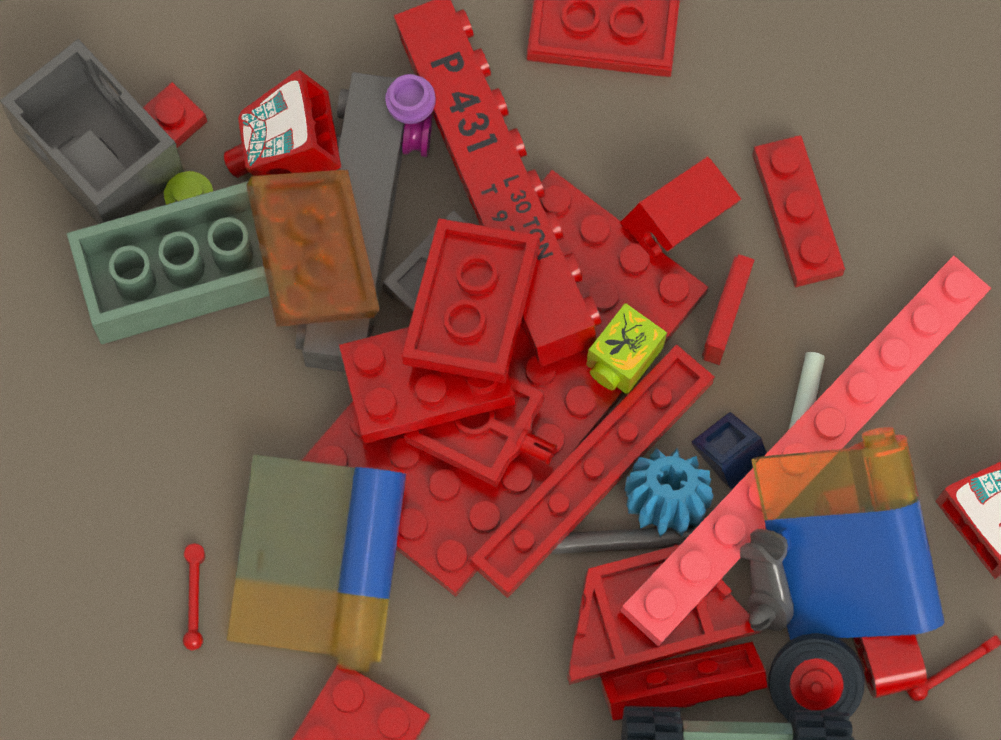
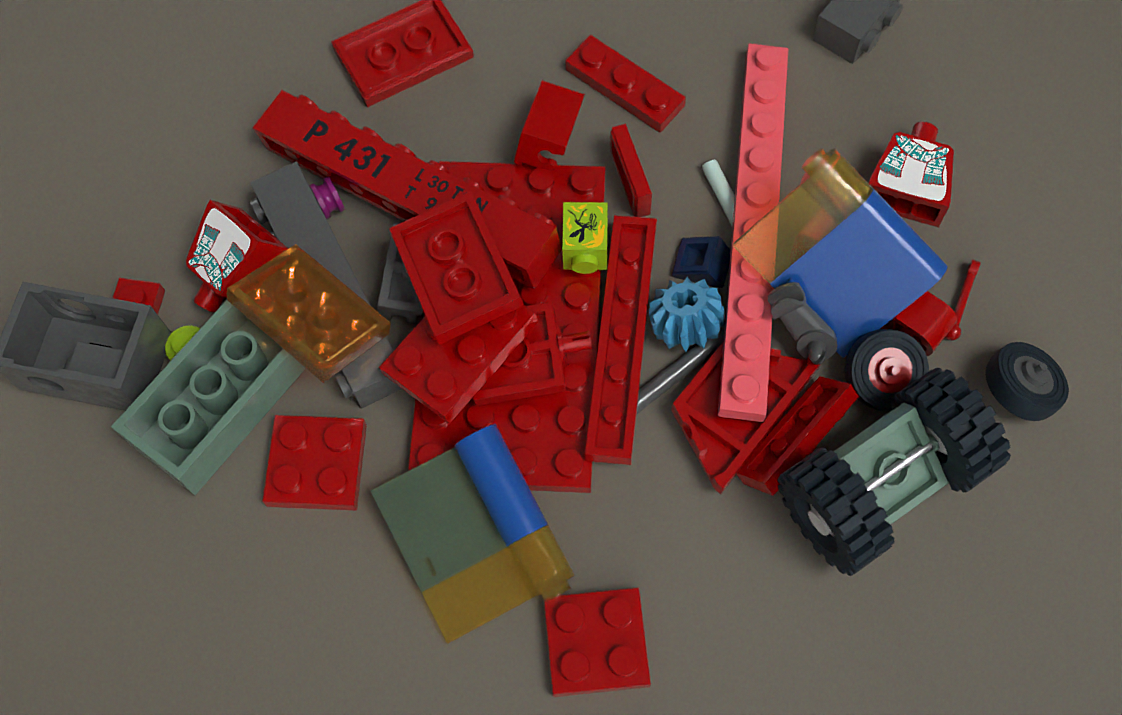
camera: 30 degrees left, 5 degrees down
(194, 555) = (377, 599): red hinge -> none
(227, 389) = (315, 462): none -> red plate
(410, 99) = (306, 170): medium lavender plate -> none

